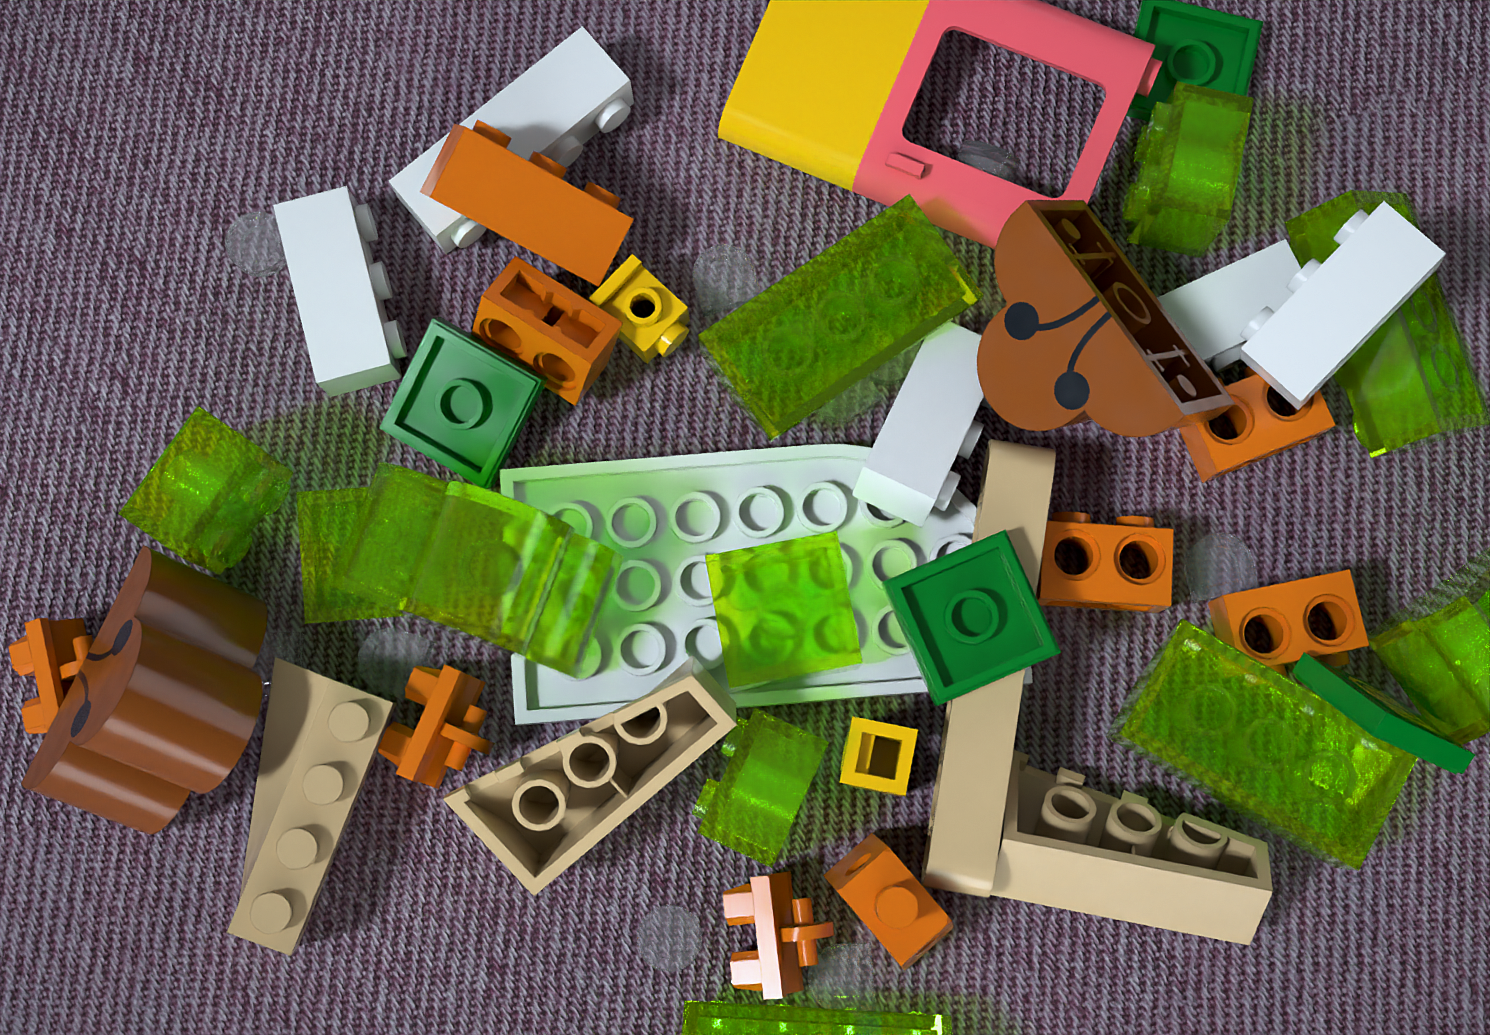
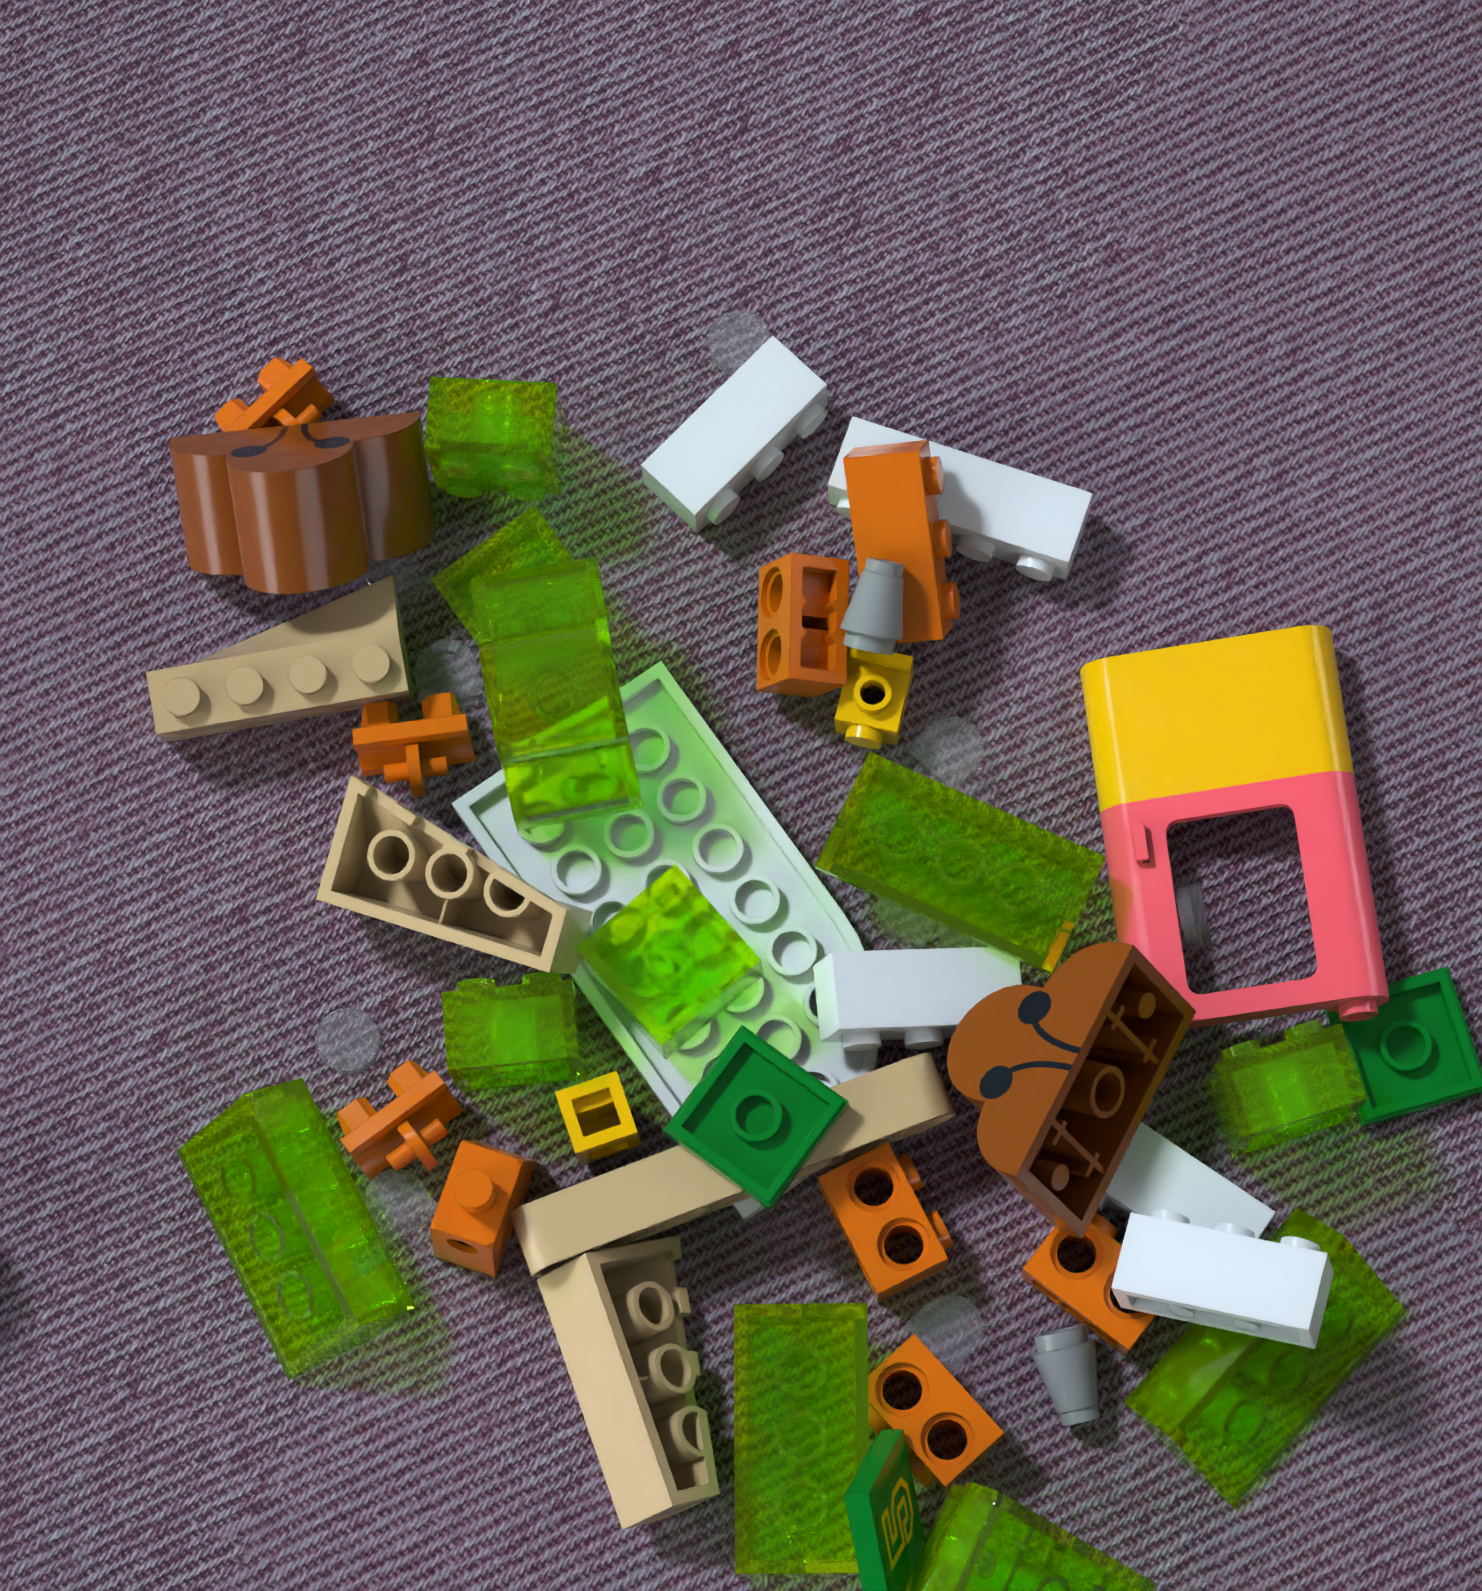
camera: 65 degrees right, 5 degrees down
(463, 403) = (701, 596): green tile -> none
(576, 253) = (876, 608): none -> light grey cone
(1313, 488) = (1069, 1372): none -> light grey cone

